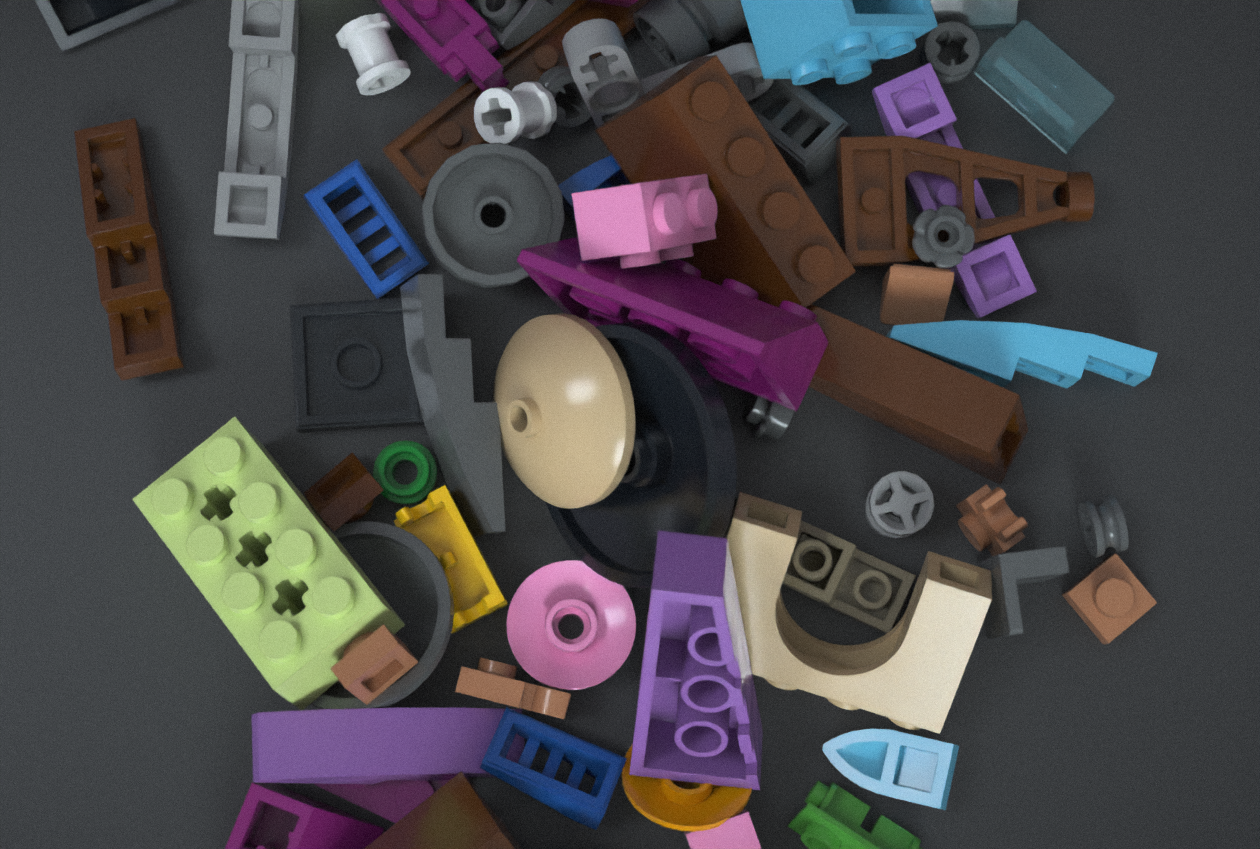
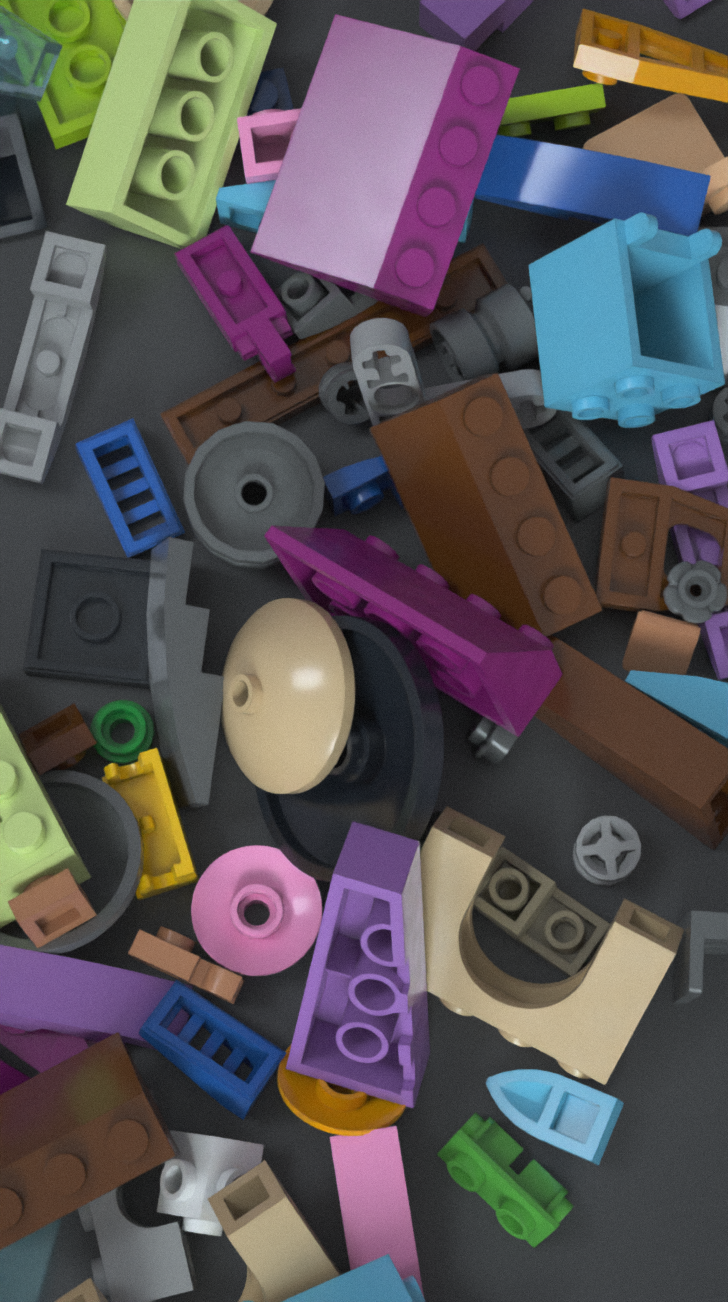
camera: 15 degrees right, 5 degrees down
(373, 54) = (169, 321): white bush -> none
(507, 114) = (287, 399): white bush -> none
(645, 220) = (399, 519): bright pink brick -> none
(989, 521) = (693, 881): nougat plate -> none

